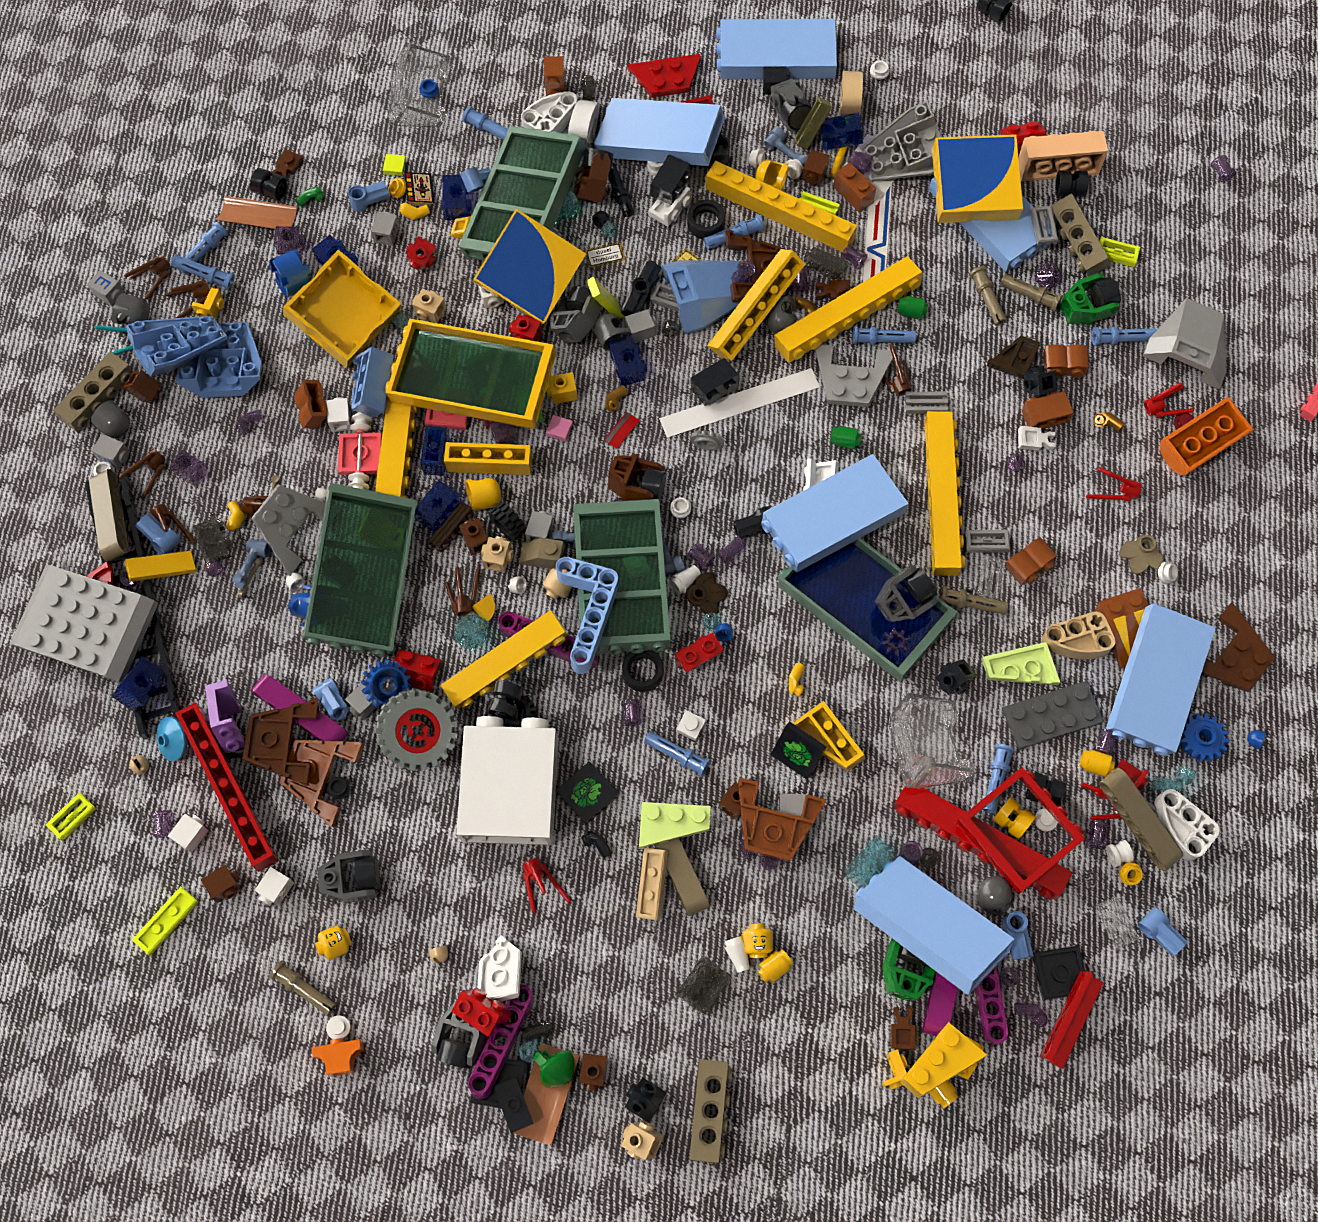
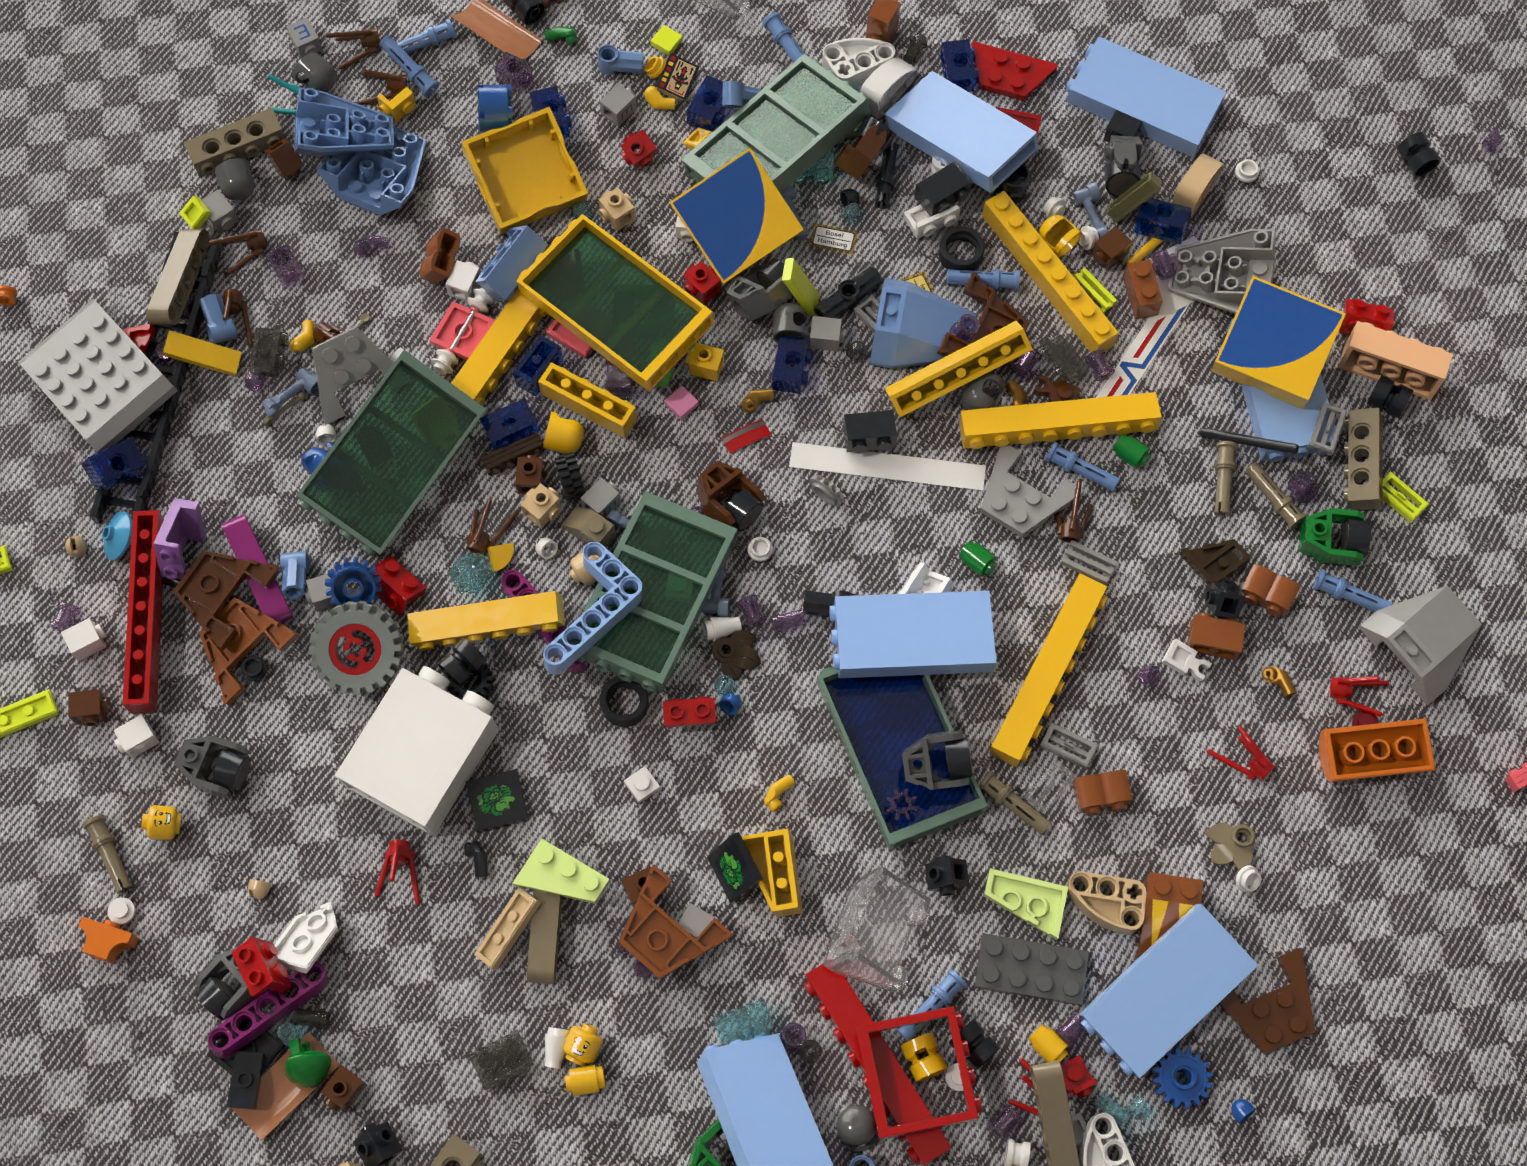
camera: 25 degrees right, 0 degrees up
(93, 460) = (195, 212): none -> neon yellow tile
(626, 84) = (959, 54): none -> clear blue brick
(631, 712) = (587, 740): clear purple bush -> none
(686, 757) = (617, 816): medium blue pin -> none
(993, 259) = (1249, 440): none -> black piece

